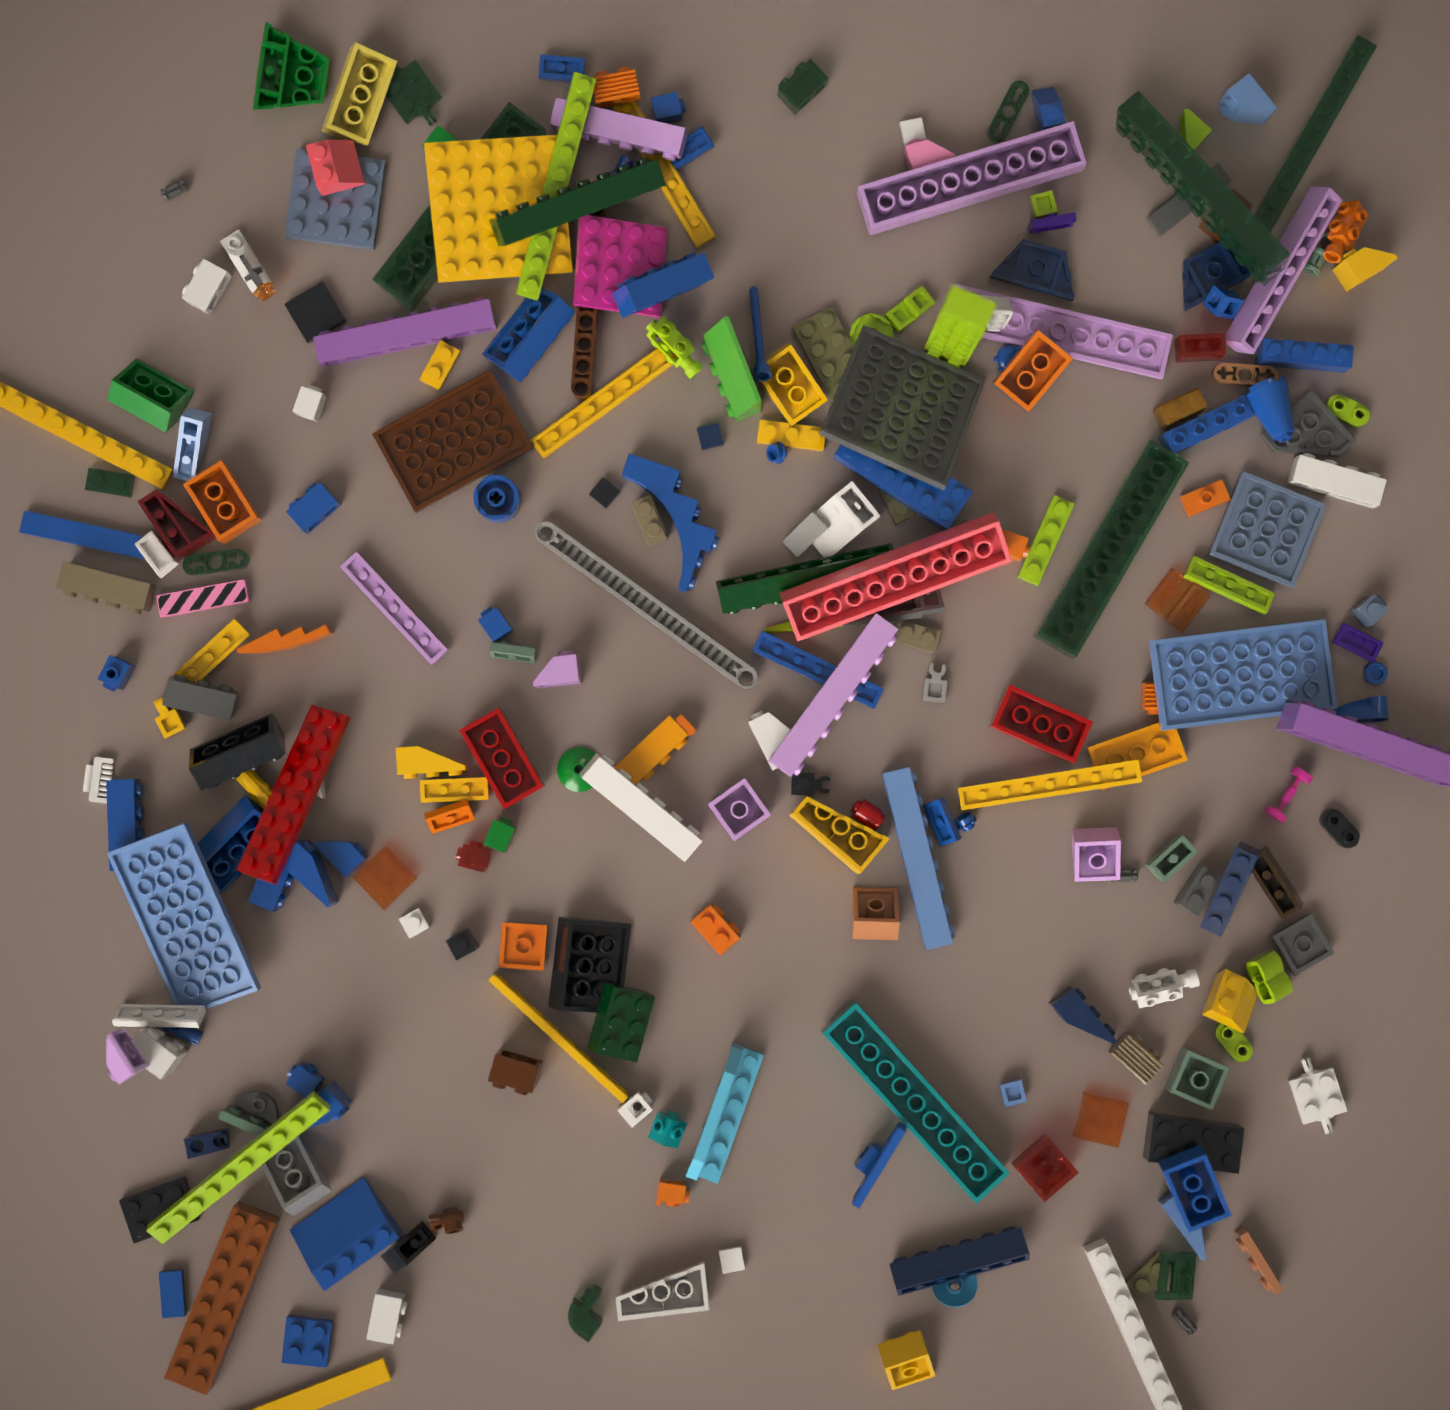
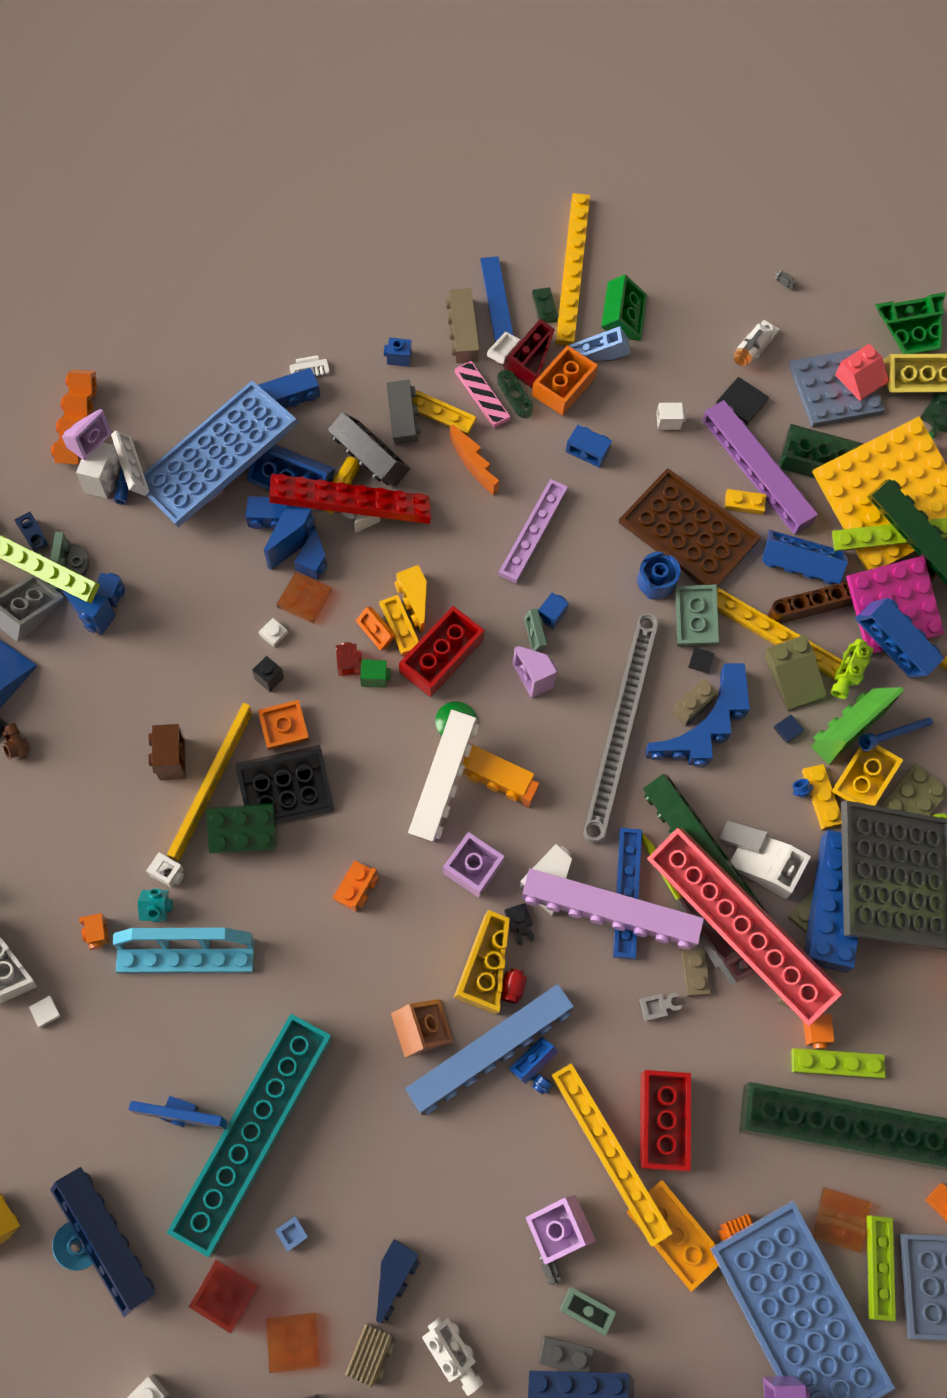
camera: 65 degrees right, 20 degrees down
(67, 1054) = (76, 406): none -> orange brick
(168, 721) = (374, 399): yellow plate -> none
(206, 286) = (725, 321): white brick -> none
(555, 477) = (697, 615): none -> sand green plate
(656, 404) = (795, 672): none -> olive slope

